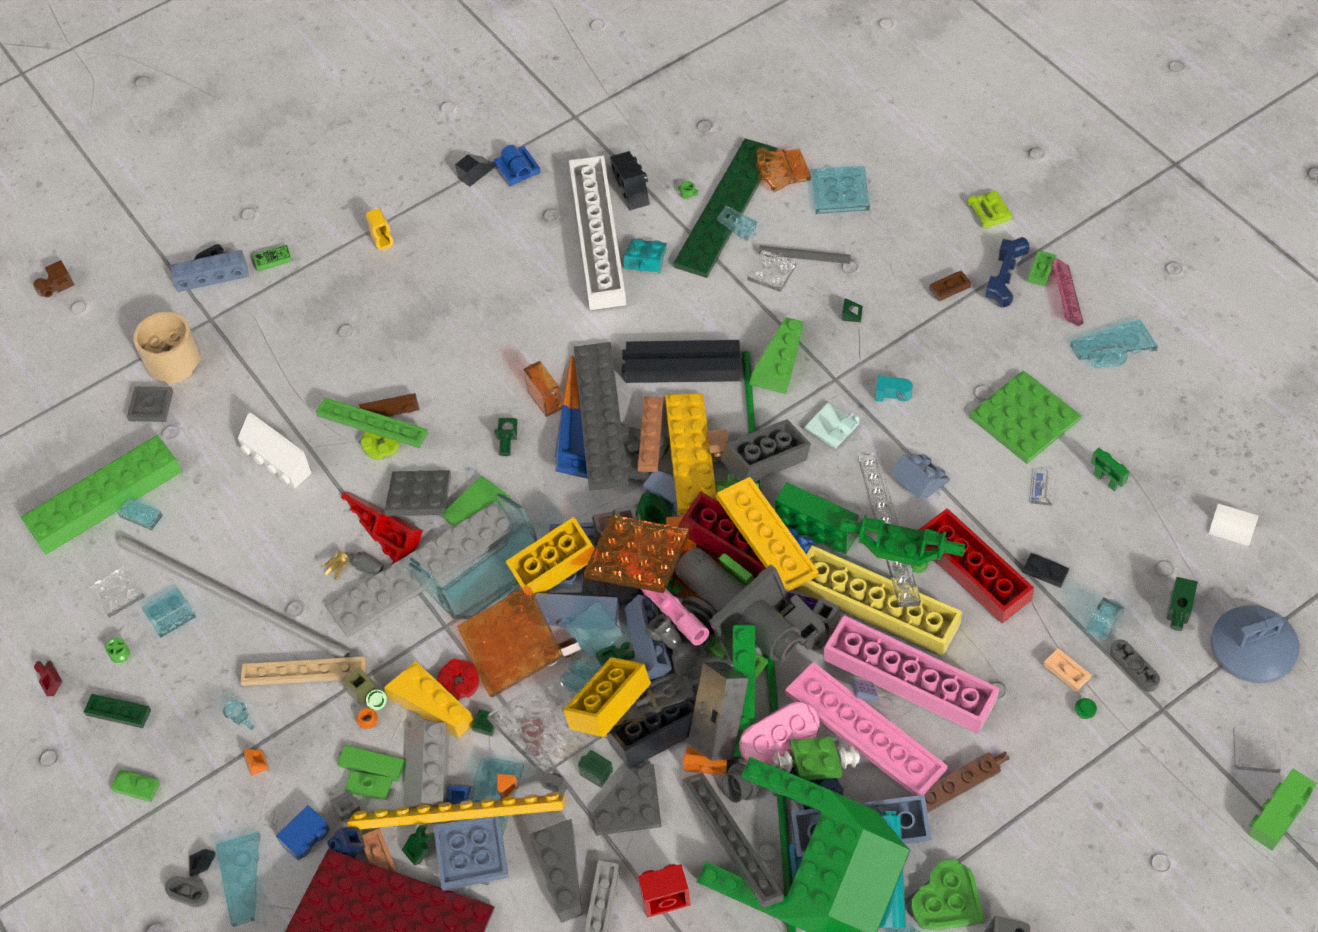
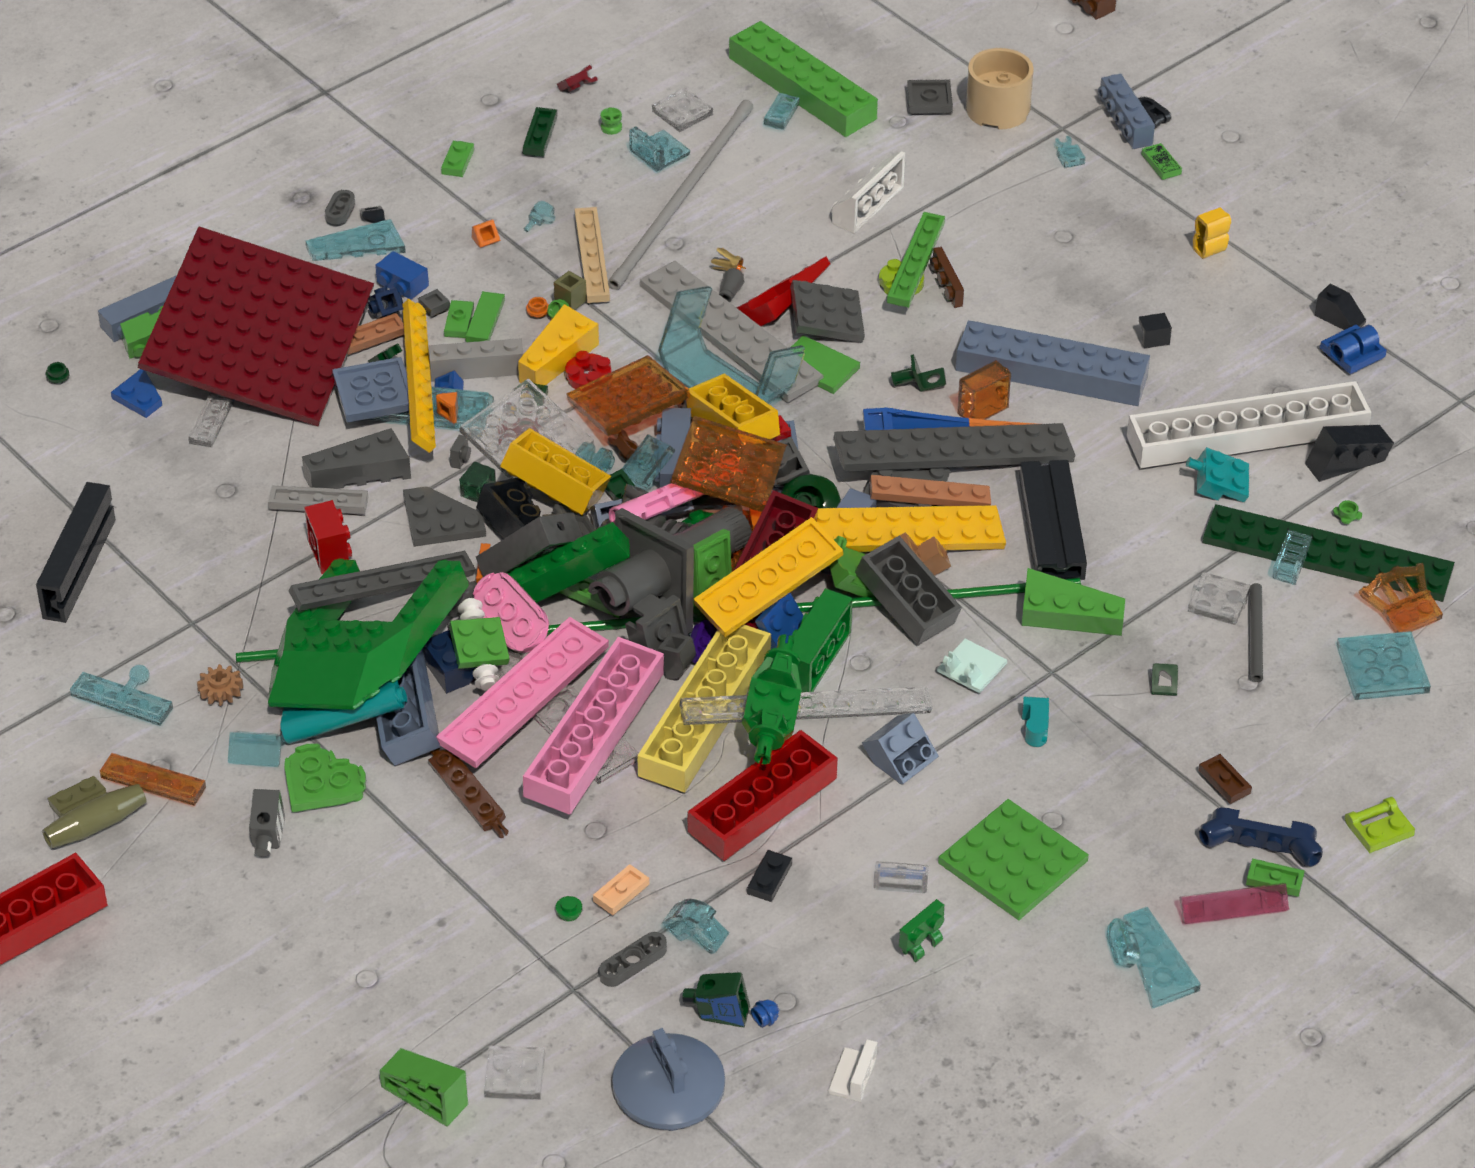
camera: 80 degrees right, 10 degrees down
(247, 316) = (1069, 154): none -> clear light blue plate
(478, 275) = (1155, 330): none -> black panel
(506, 346) = (1055, 362): none -> sand blue brick
(864, 690) = (571, 685): sand blue tile -> none
(1185, 573) = (765, 1012): none -> blue plate

